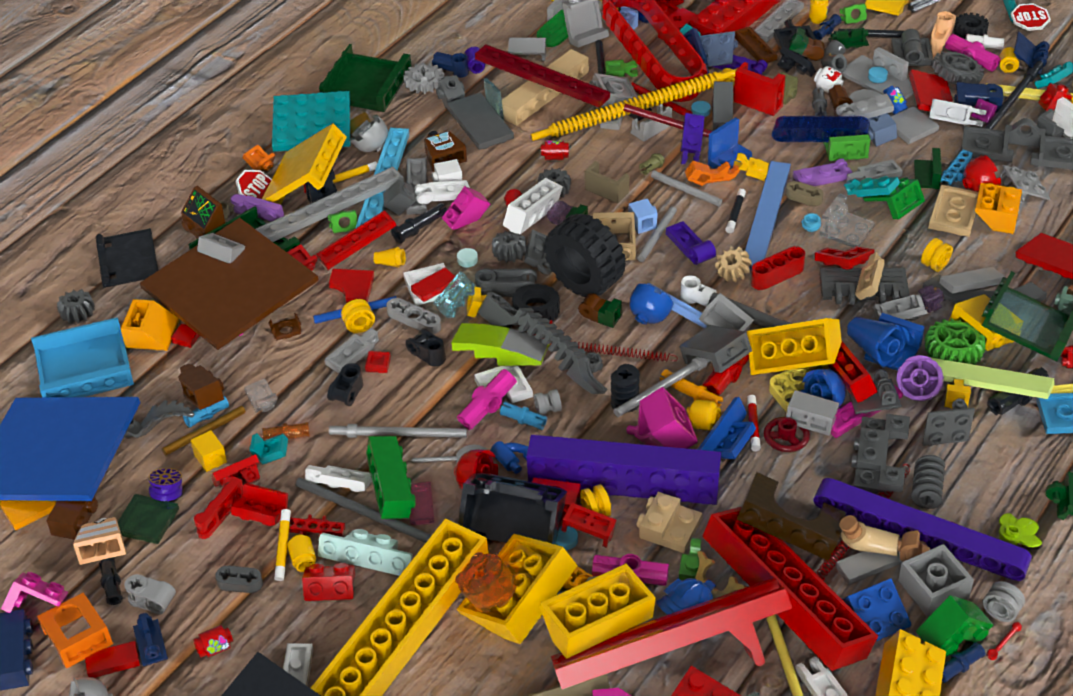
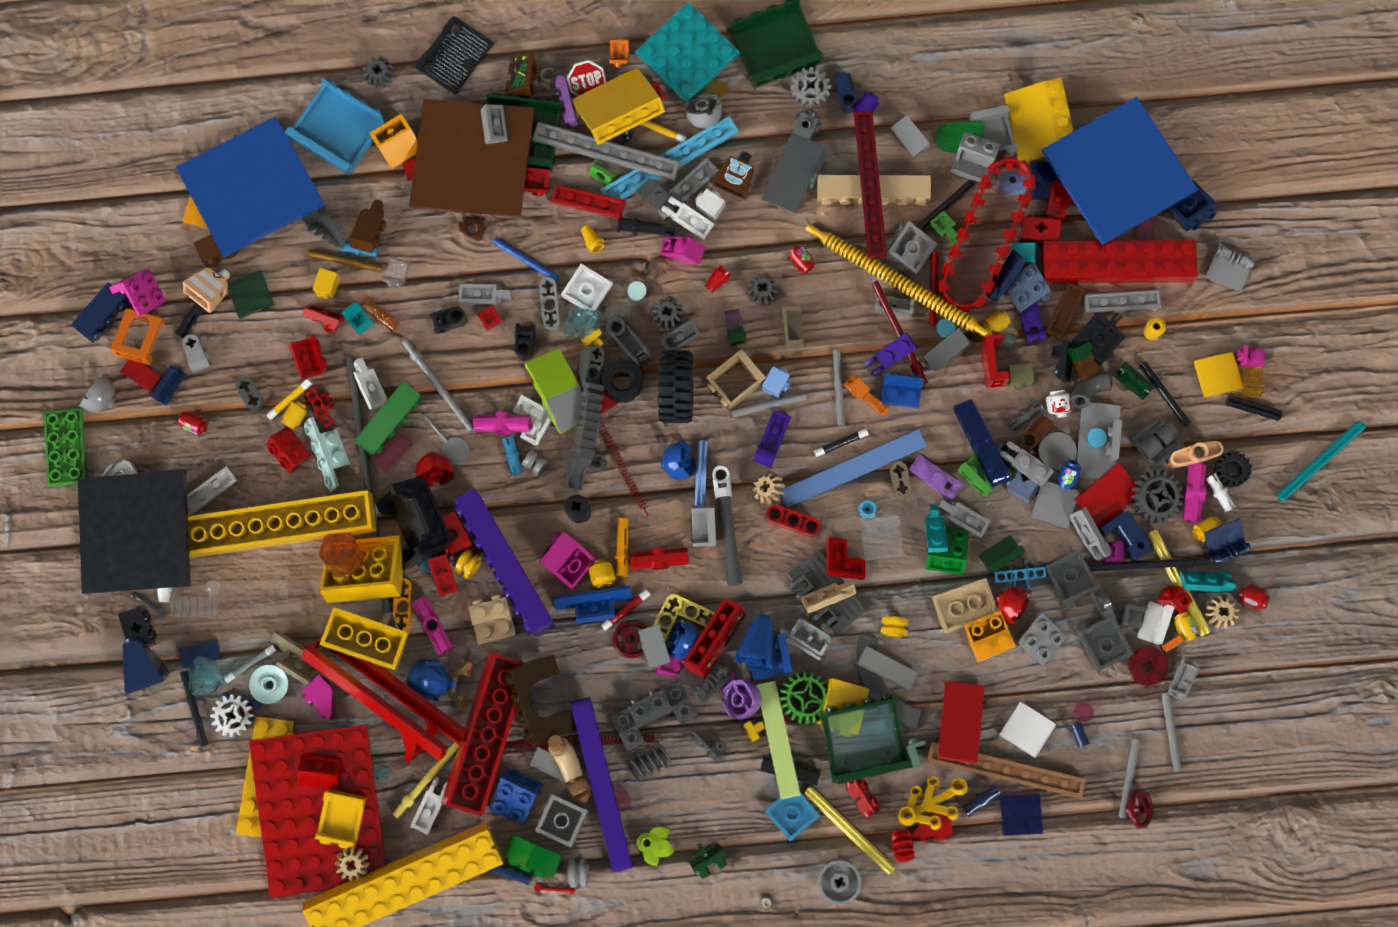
camera: 55 degrees right, 35 degrees up
(165, 484) = (279, 283): dark purple wheel -> none
(218, 508) = (288, 333): red plate -> none
(352, 283) = (549, 236): red tile -> none
(357, 316) = (513, 271): yellow wheel -> none
(432, 285) = (582, 297): red tile -> none
(506, 457) = (467, 476): blue plant -> none
(531, 206) = (711, 301): white brick -> none
(601, 310) = (652, 428): leg -> none
(655, 161) = (845, 342): olive pin -> none
(690, 563) = (471, 656): bright green plate -> none
(697, 364) = (644, 537): light grey bar -> none
(717, 344) = (665, 540): dark grey panel -> none
(754, 167) = (900, 423): yellow plate -> none
(794, 346) = (702, 594): yellow slope -> none
(832, 22) = (1139, 350): dark blue pin -> none
(847, 13) = (1169, 354): bright green piece -> none
(931, 298) = (841, 651): clear purple gear -> none
(1030, 17) = (1286, 510): piece -> none

